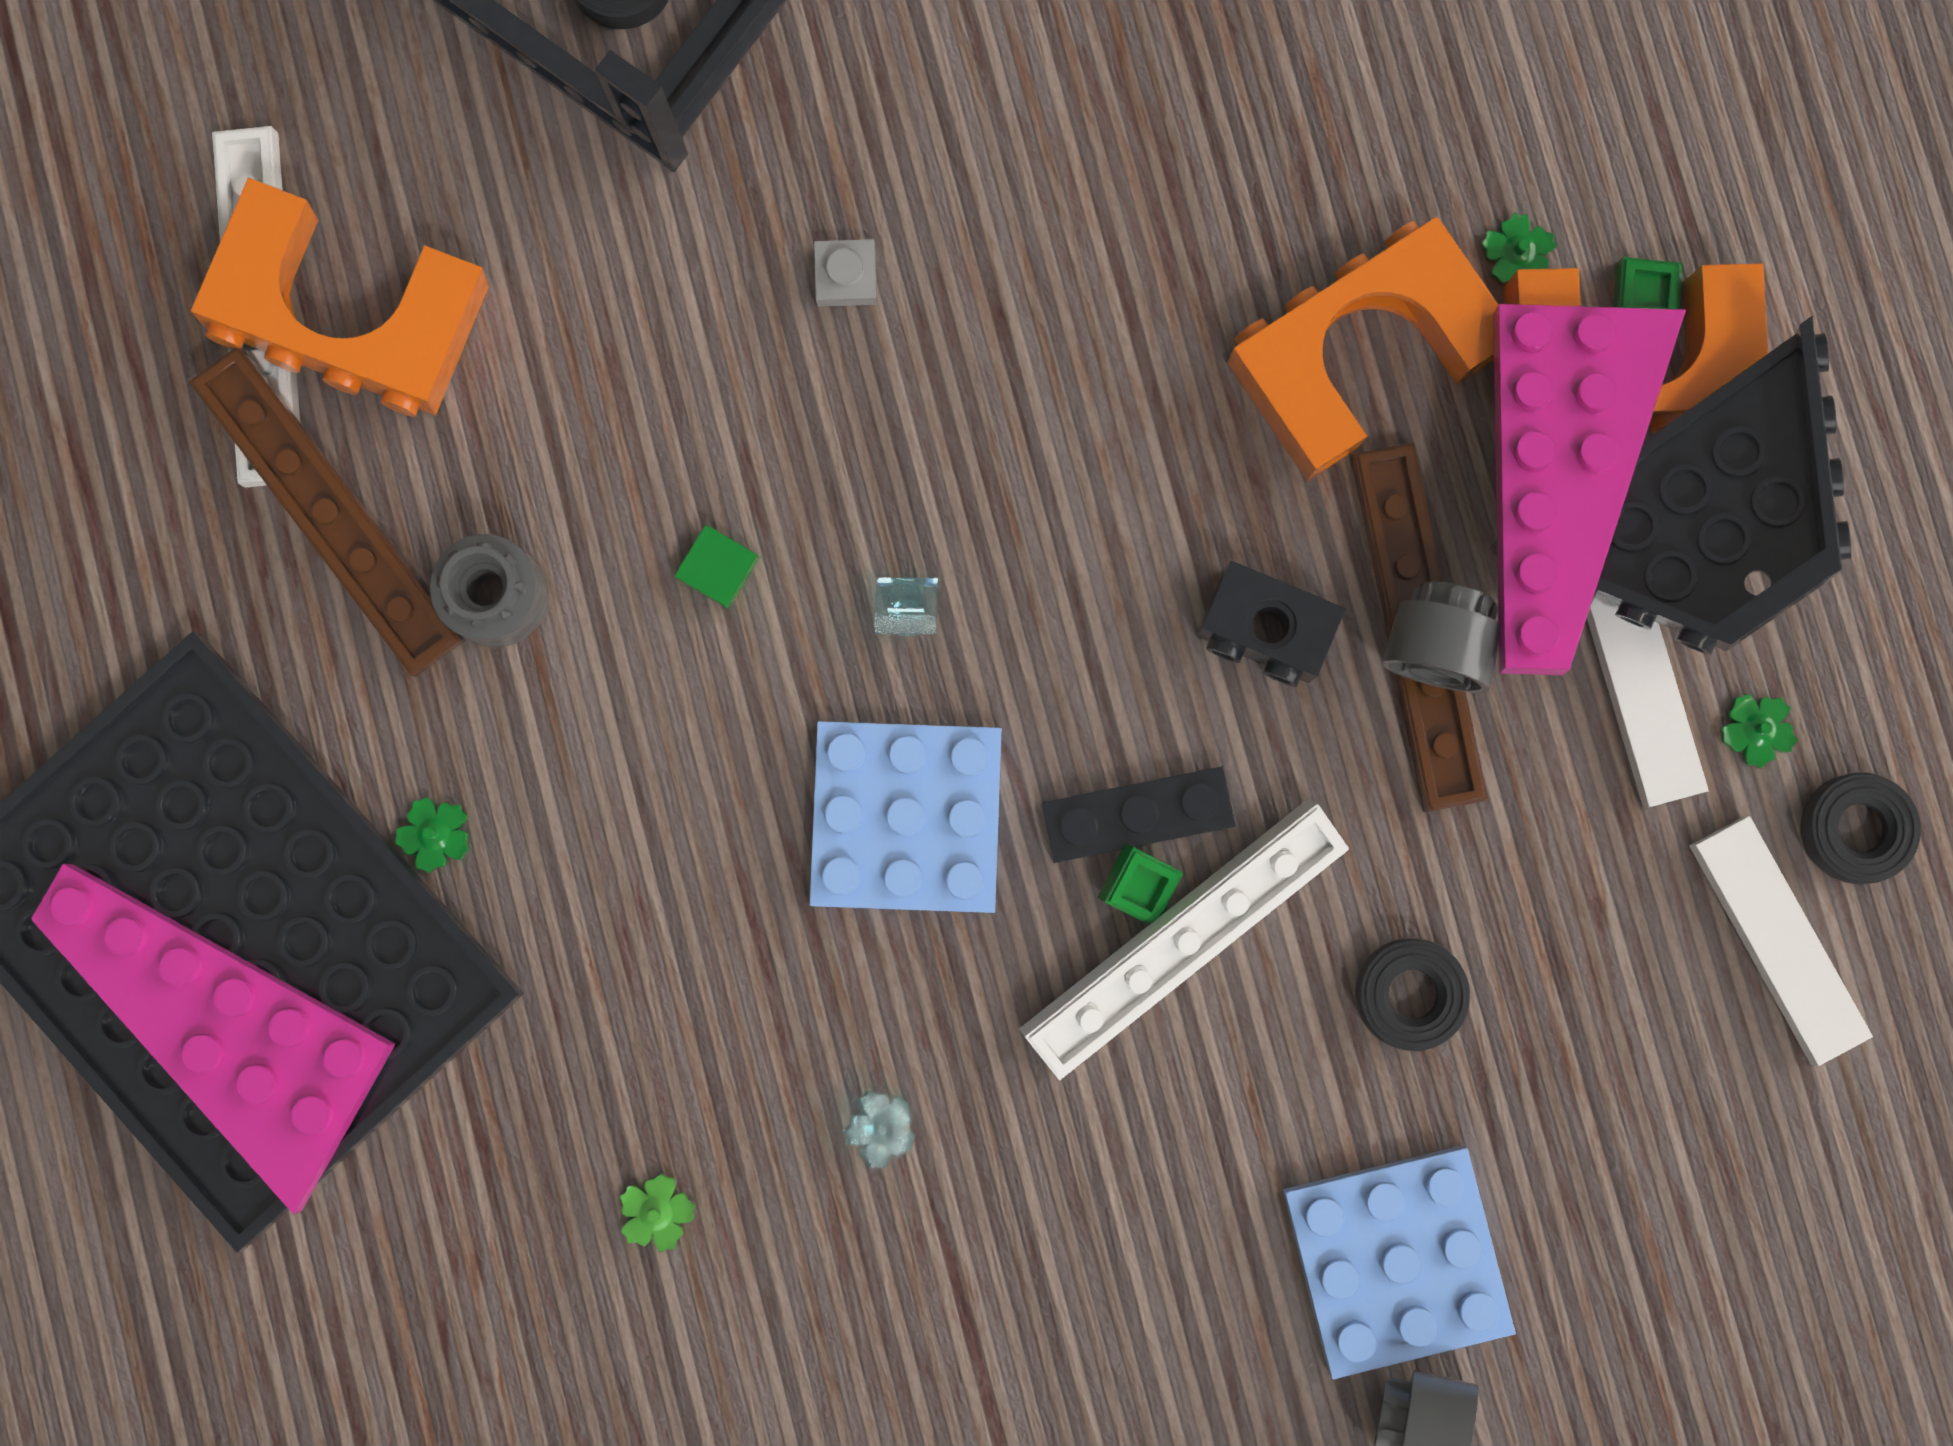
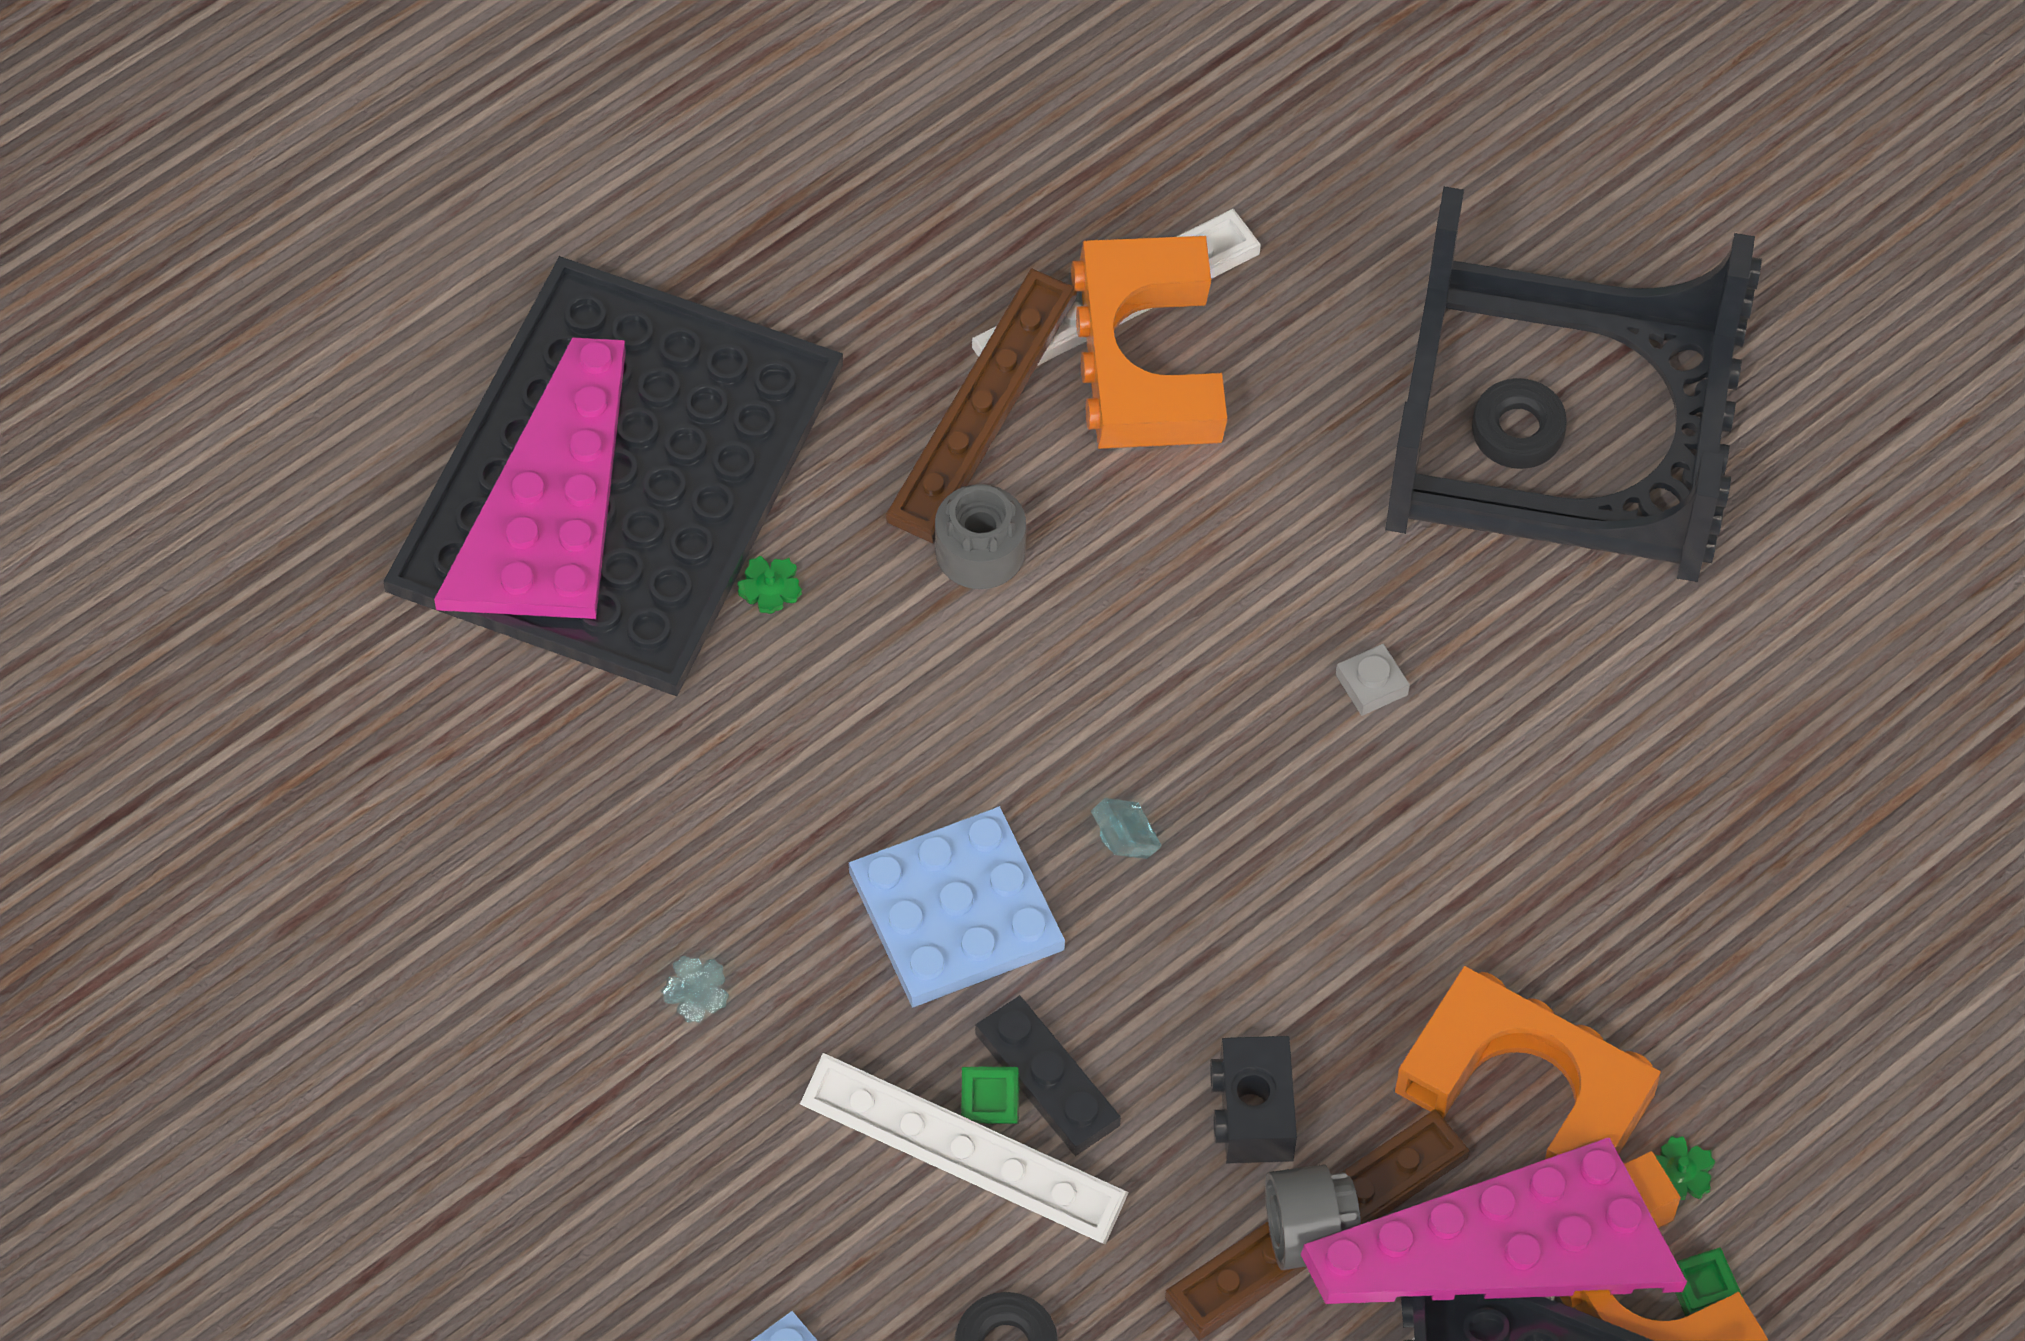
camera: 60 degrees right, 25 degrees down
(656, 1213) = (548, 862): bright green plant -> none
(717, 567) = (1085, 688): green tile -> none

